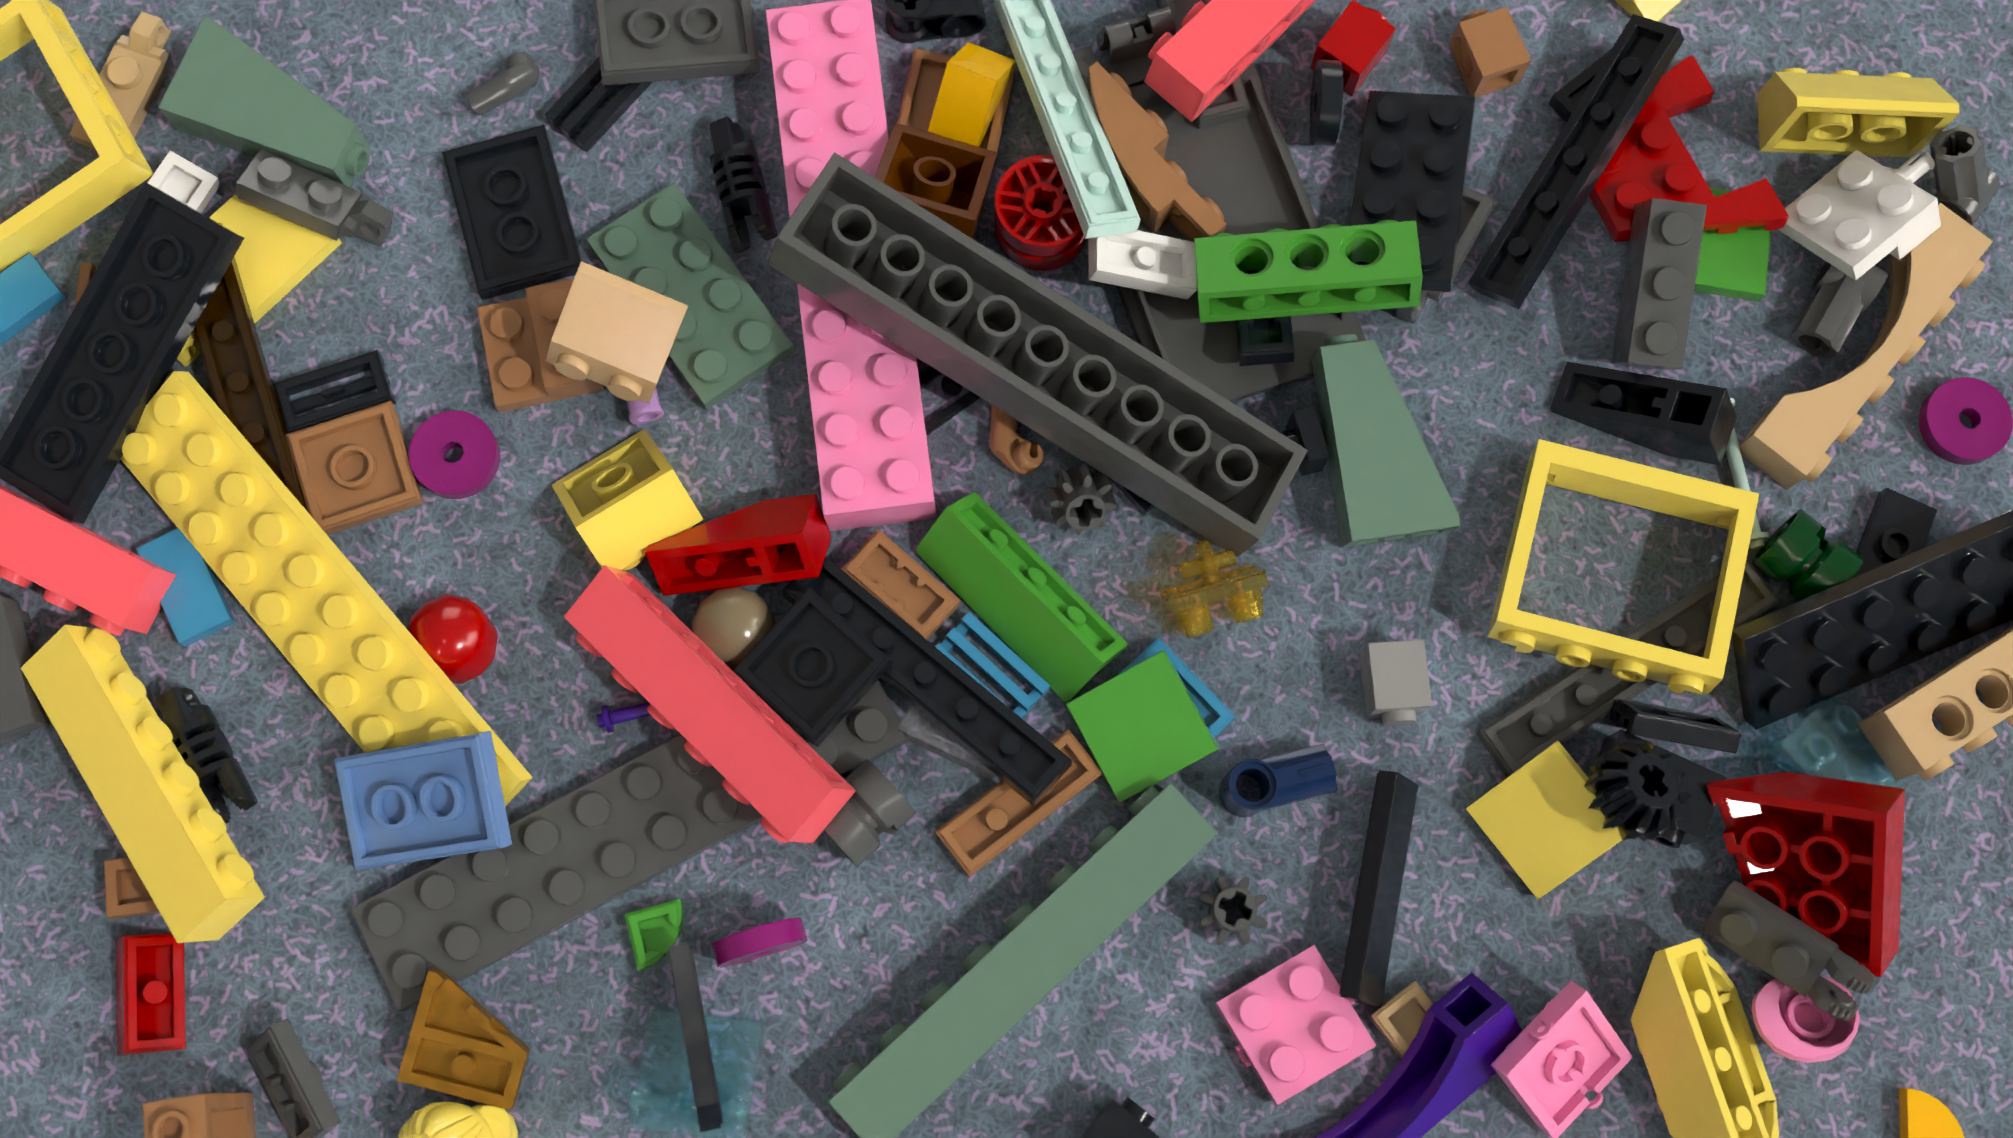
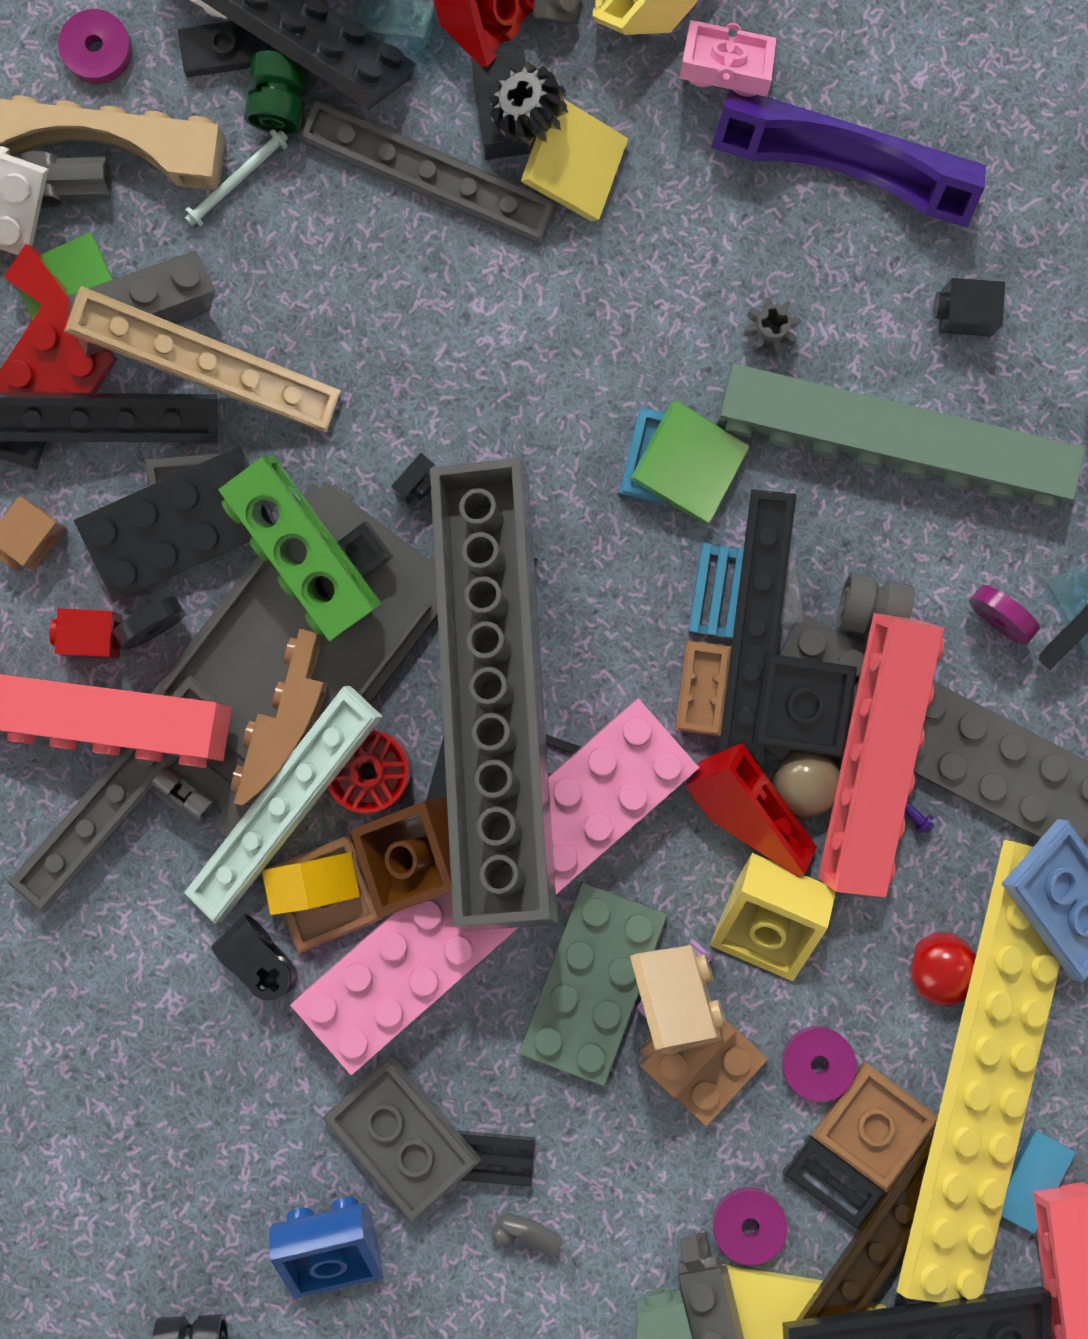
camera: 125 degrees left, 10 degrees up
(349, 266) = (749, 1247): none -> magenta piece
(513, 212) = (616, 1156): black tile -> none
(654, 931) = (1038, 693): bright green tile -> none
(739, 184) = (489, 1005): black hinge -> none
(1004, 816) = (815, 518): medium nougat tile -> none
(1012, 447) = (554, 676): medium nougat arm -> none
(1019, 596) = (653, 603): bright green panel -> none
(1081, 498) = (561, 605): dark grey gear -> none
(1144, 263) = (364, 667): white plate -> none
(1238, 586) = (561, 478): clear yellow hips -> none
(1281, 780) = (662, 348): dark blue piece -> none
(1294, 1025) = (815, 242): bright pink plate -> none
(1377, 459) = (399, 420): sand green slope -> none
(1379, 889) = (693, 241): black tile -> none
(1395, 681) = (545, 315): light grey brick -> none
(1402, 1017) = (762, 178): tan tile -> none
(1560, 301) = (201, 360): none -> tan tile
(1643, 488) = (432, 166): light yellow window -> none
(1649, 410) = (236, 264): black slope -> none
(1675, 726) = (454, 114): black tile -> none

